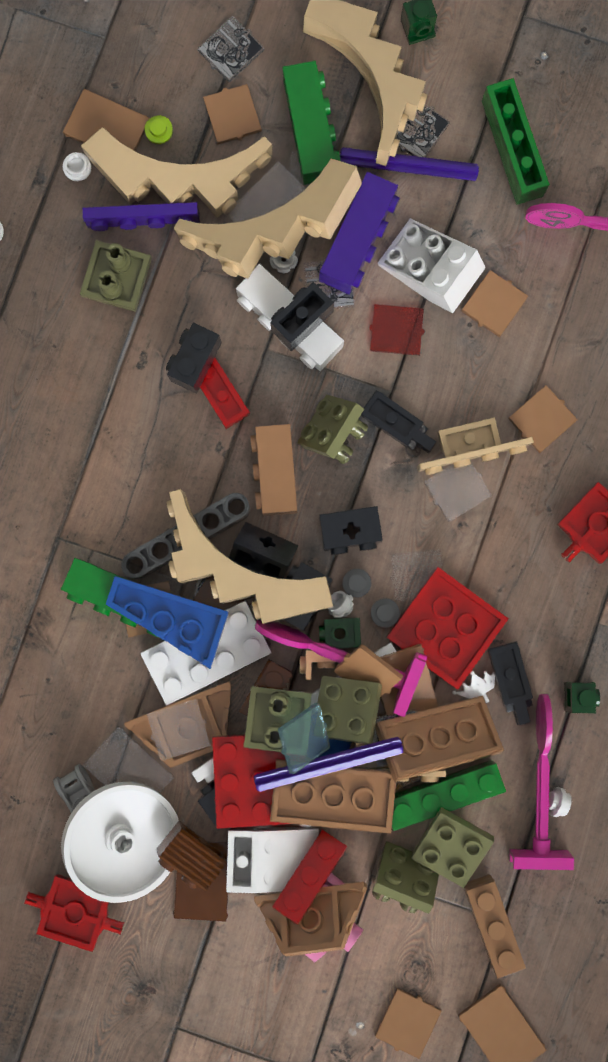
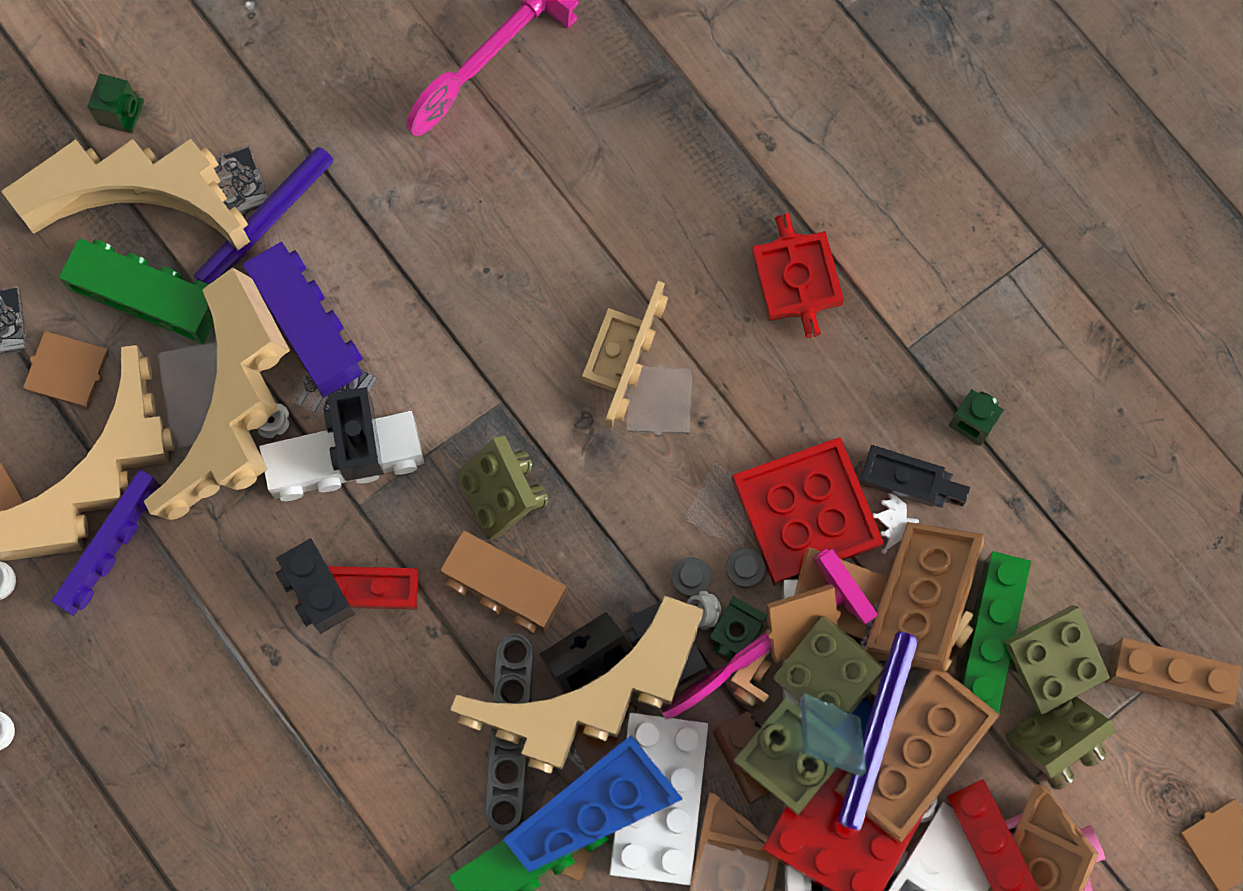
camera: 60 degrees left, 10 degrees down
(115, 275) = (153, 618): olive plate -> none
(158, 129) = (23, 460): lime plate -> none
(335, 523) = (627, 521): black brick -> none
(396, 329) = (437, 350): clear red piece -> none
(397, 422) = (543, 414): black hinge -> none
(433, 264) = (393, 264): white slope -> none
(494, 303) = (482, 229): medium nougat piece -> none
(515, 141) = (323, 91): green brick -> none
(541, 856) = (996, 482): dark pink piece -> none
(543, 418) = (642, 260): medium nougat piece -> none
(559, 802) = (1078, 516): white plate -> none

